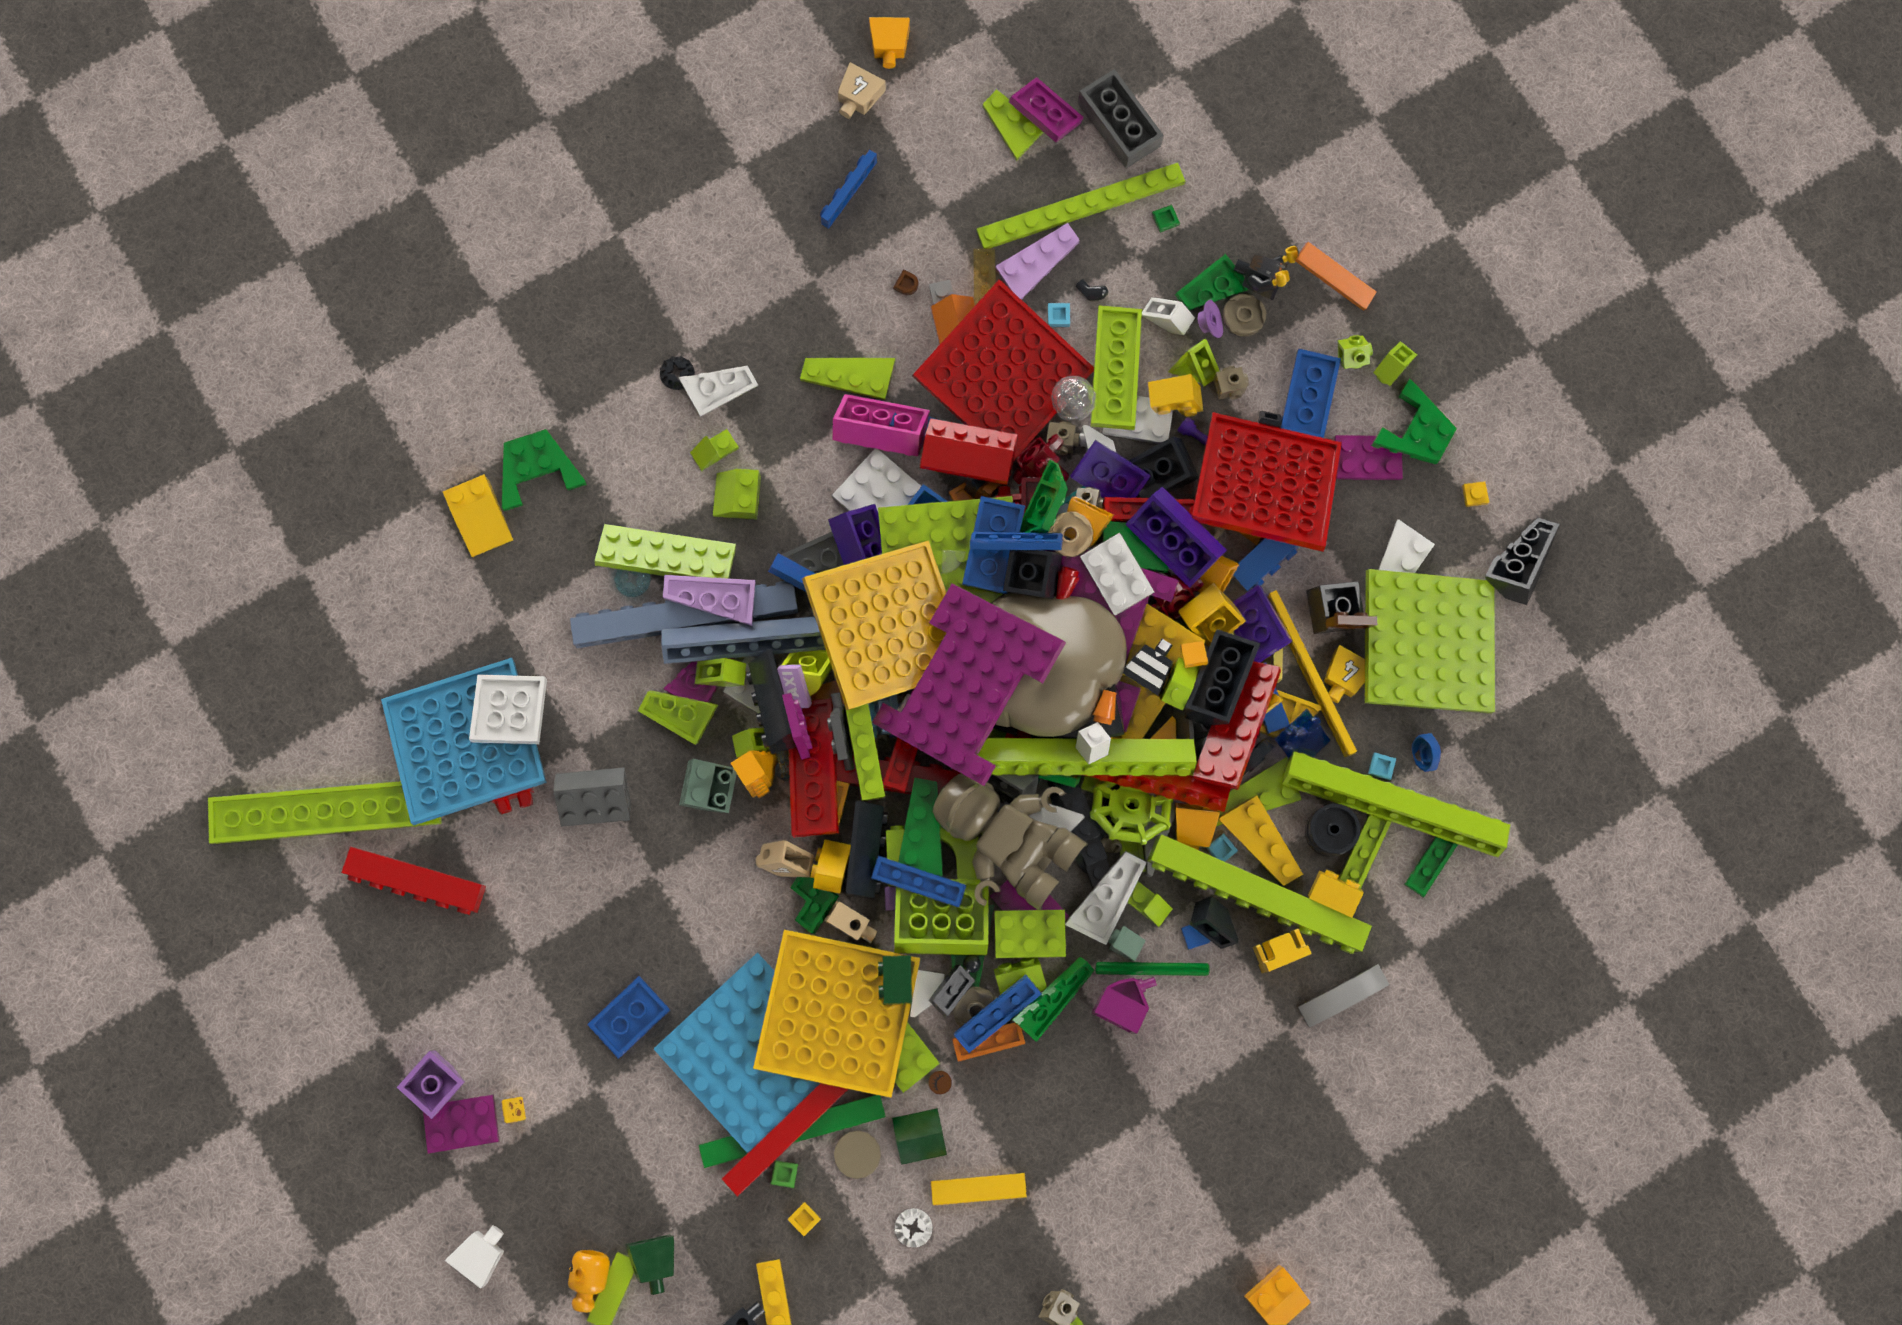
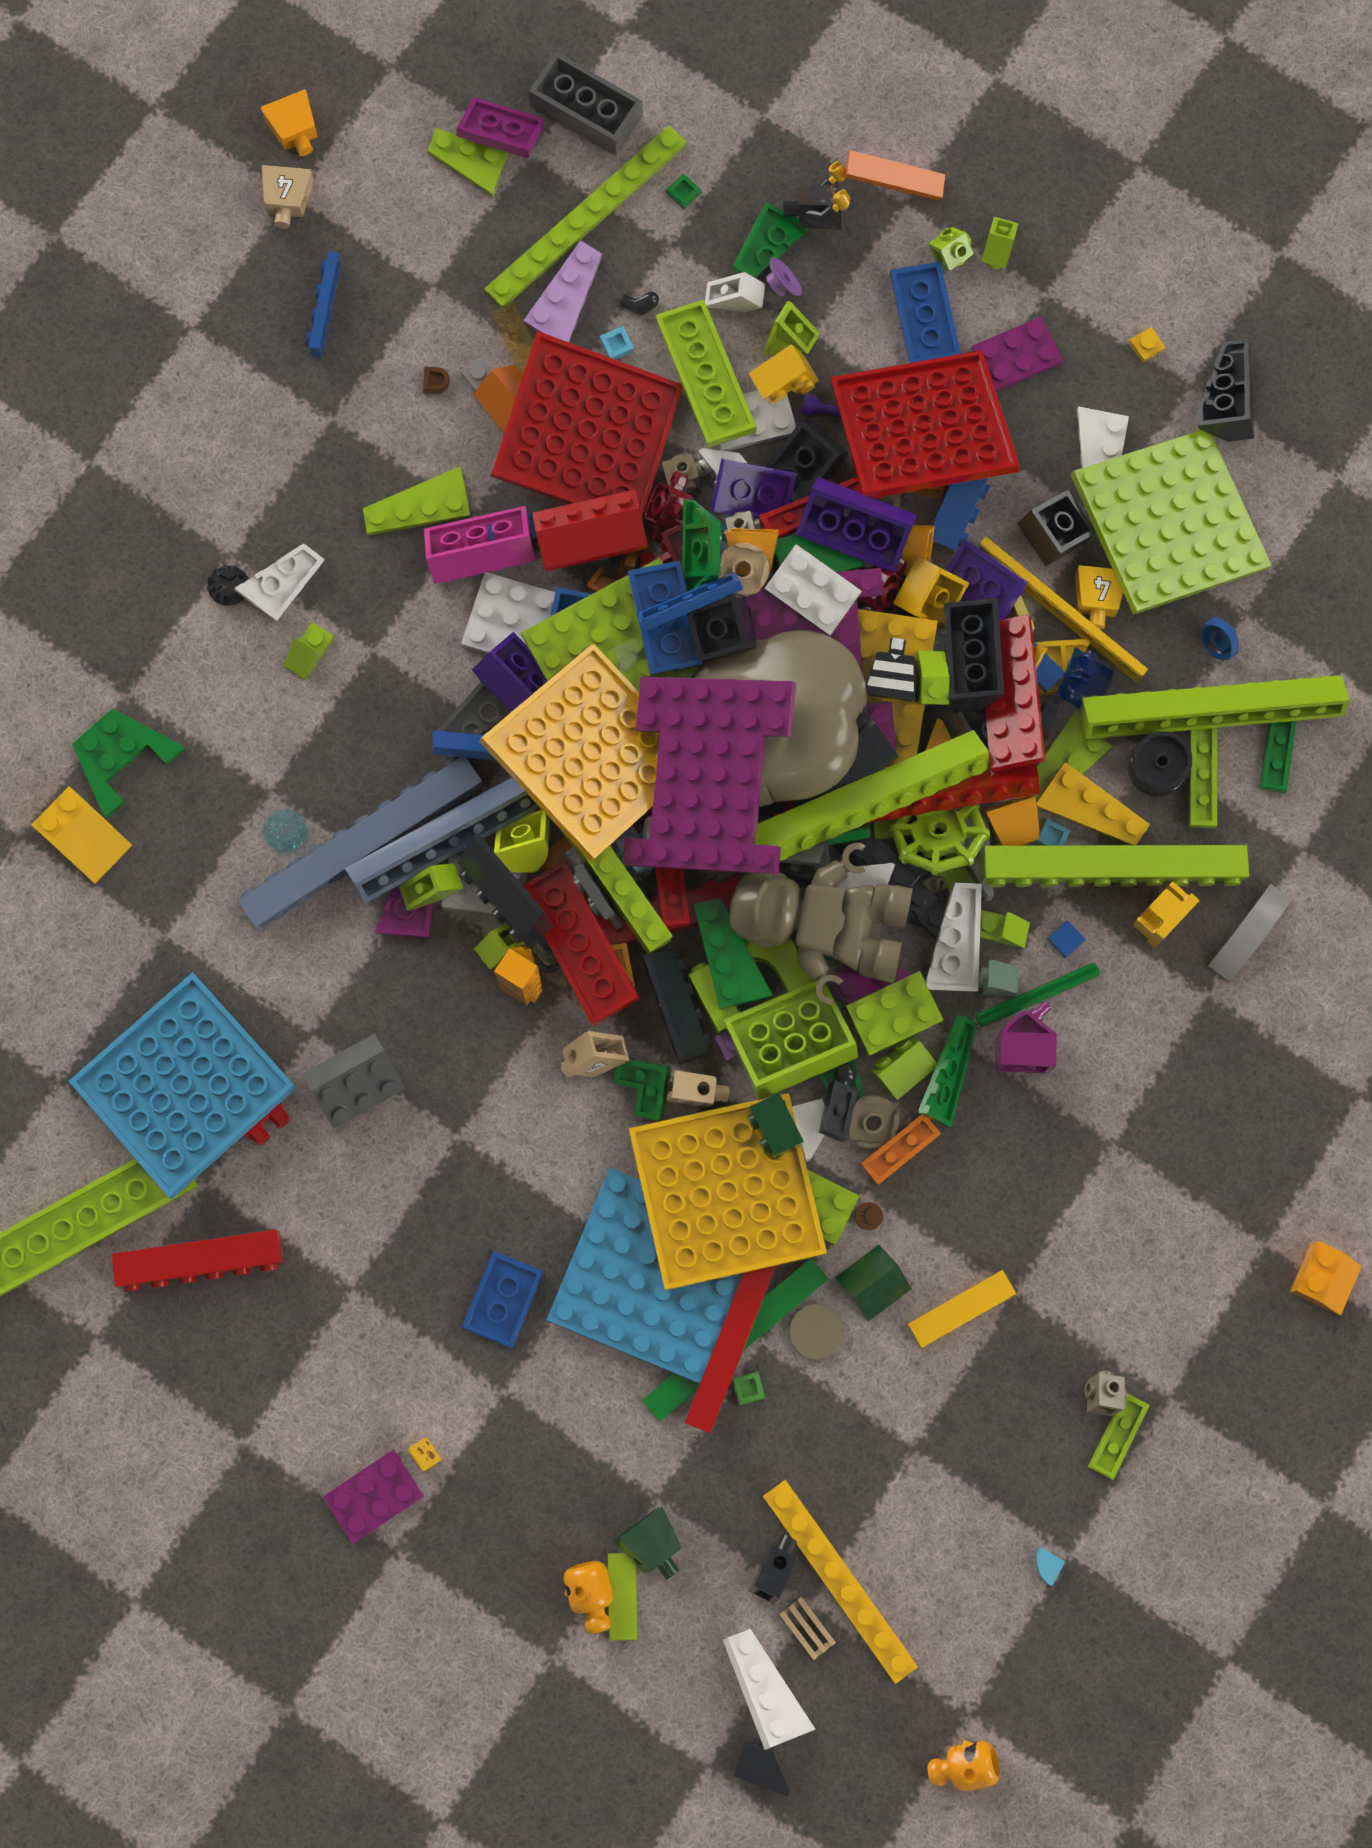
camera: 25 degrees left, 0 degrees up
(431, 1083) = (323, 1466): medium lavender slope -> none
(478, 1256) = (459, 1626): white torso -> none
(508, 709) = (217, 1027): white plate -> none
(663, 553) = (309, 787): lime plate -> none
(678, 714) = (405, 951): lime wing -> none
(708, 786) = (473, 1014): sand green slope -> none
(717, 596) = (388, 805): lavender wing -> none
(737, 494) = (356, 687): lime slope -> none
(794, 683) = (520, 862): lavender tile -> none
(797, 725) = (546, 900): magenta plate -> none
(804, 1219) = (792, 1425): yellow plate -> none
(831, 866) = (648, 1039): yellow brick -> none
(902, 1232) = (904, 1392): white gear -> none
(918, 881) = (750, 1011): blue tile -> none
(997, 1013) = (898, 1113): blue plate -> none
(1066, 582) = (762, 622): red cone -> none
(1073, 398) = (676, 425): clear cylinder -> none
(1093, 743) = (871, 778): white brick -> none
(1105, 708) = (868, 736): orange cone -> none
(1194, 654) = (933, 640): light orange tile -> none
(1214, 922) = (1081, 916): black slope -> none
(1230, 383) = (835, 337): dark tan brick -> none
(1239, 319) = (808, 260): dark tan tile -> none
(1270, 419) = (894, 358): black slope -> none
(1336, 893) = (1194, 827): yellow brick -> none
(1358, 621) = (1086, 531): reddish brown plate -> none
(1382, 766) = (1180, 675): medium azure tile -> none
(1427, 432) = (1067, 301): green wing -> none

